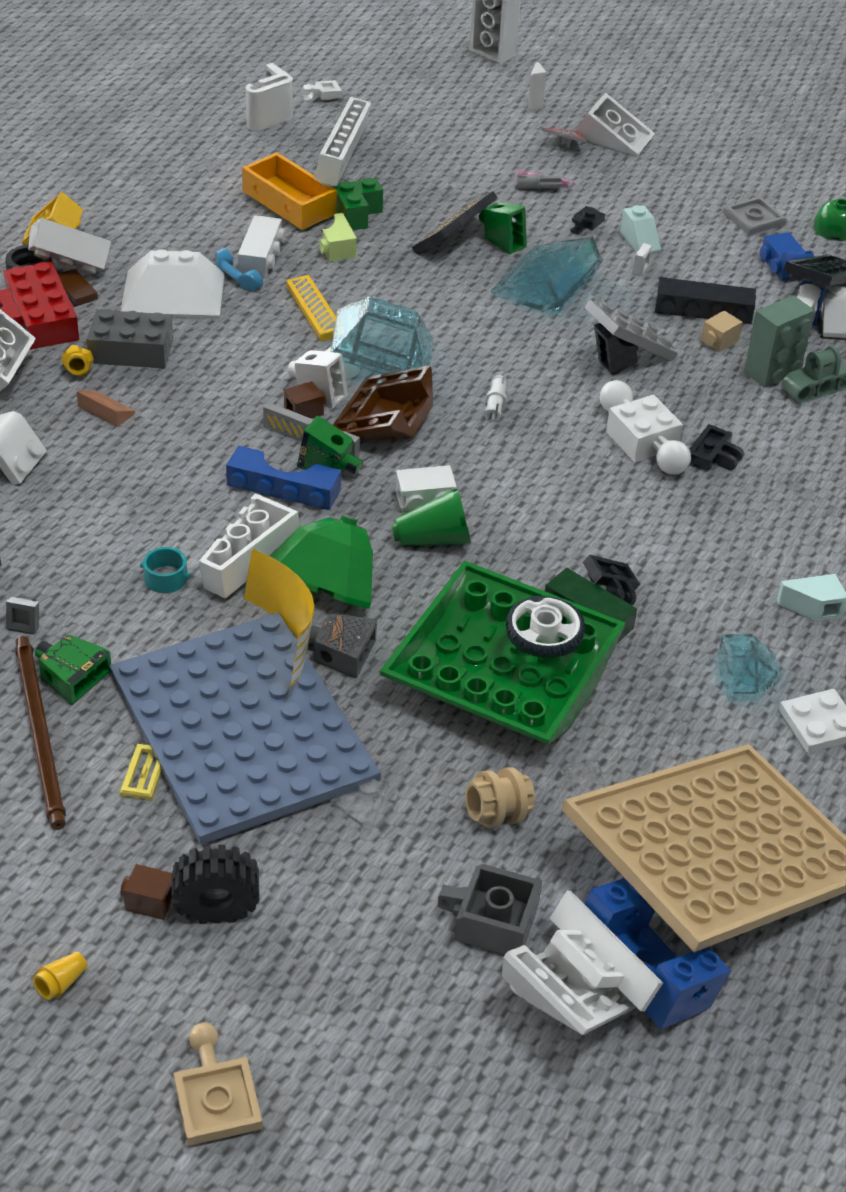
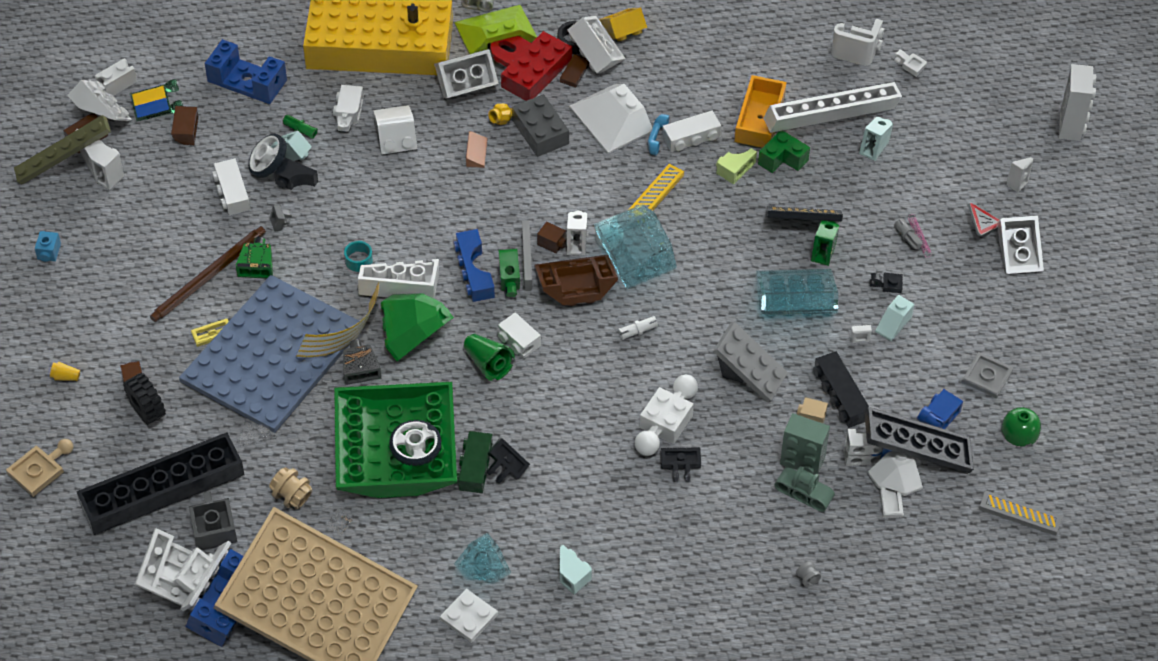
camera: 60 degrees right, 10 degrees up
(377, 947) = (160, 483): none -> black brick
(401, 143) = (877, 130): none -> light aqua torso

